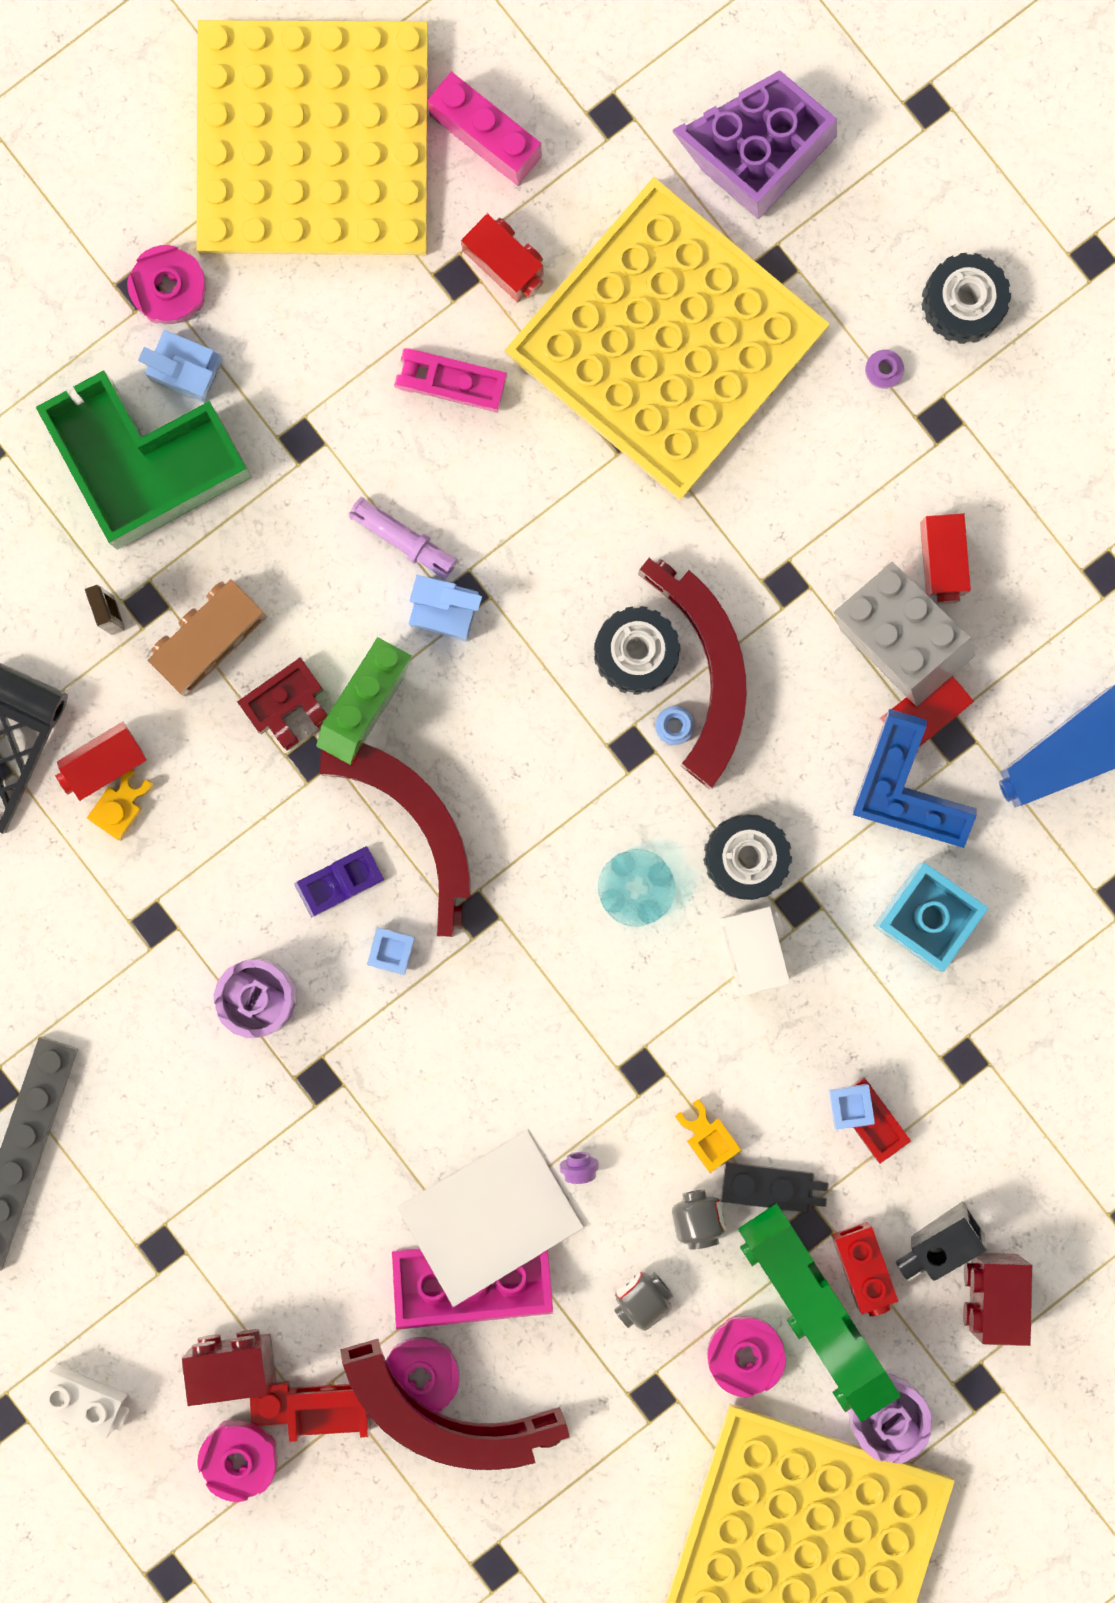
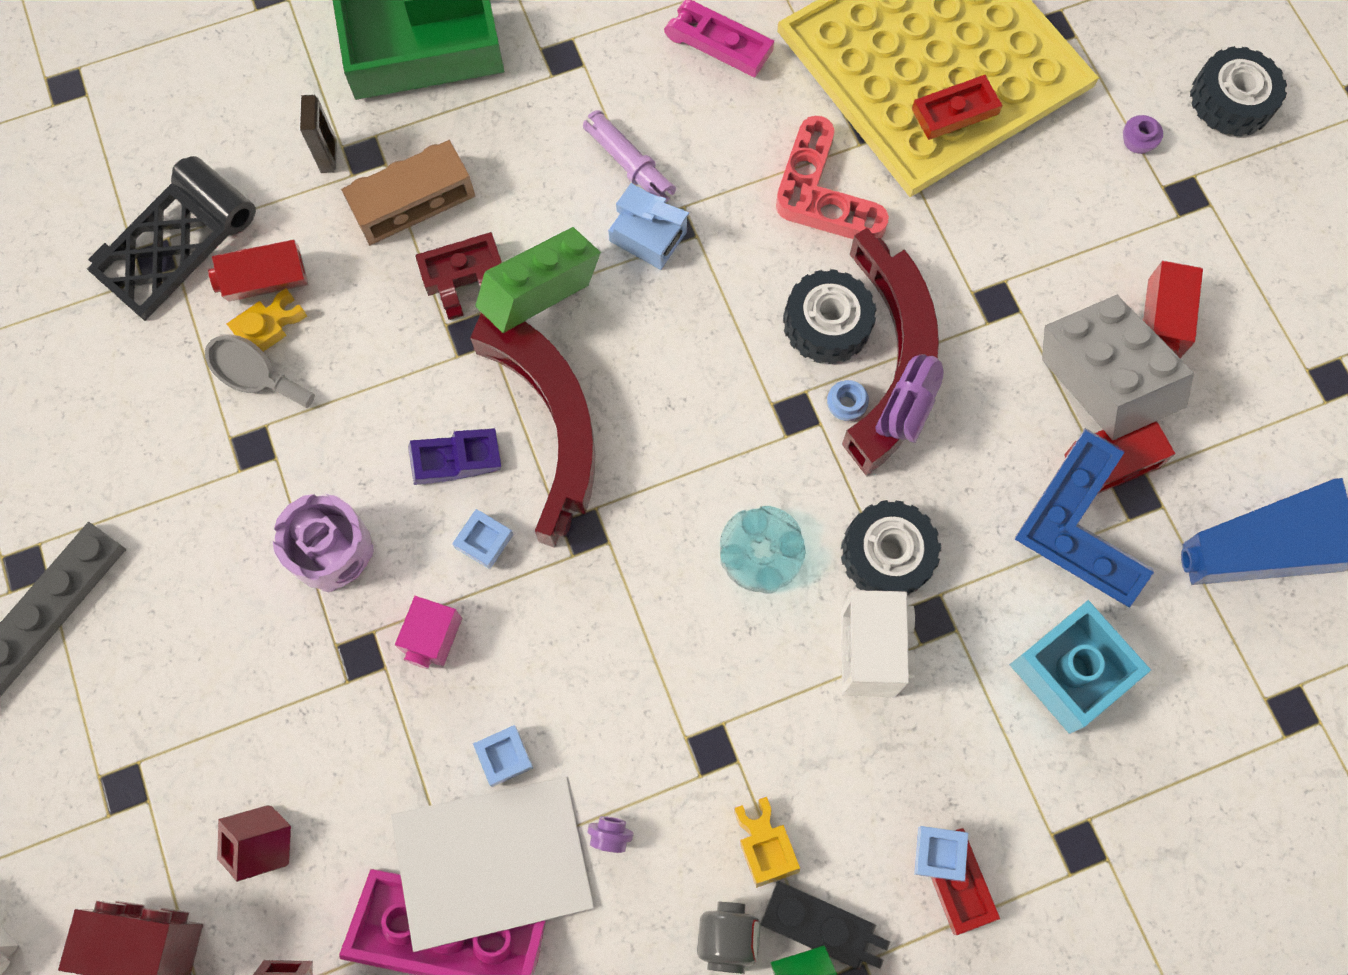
camera: 15 degrees right, 15 degrees down
(125, 856) = (249, 370): none -> light grey piece
(290, 1260) = (253, 842): none -> dark red panel
(372, 1048) = (428, 632): none -> dark pink brick
(470, 1130) = (503, 756): none -> light blue plate
(593, 527) = (813, 197): none -> coral beam
(701, 404) = (956, 107): none -> red plate
(732, 723) = (912, 399): none -> medium lavender arm

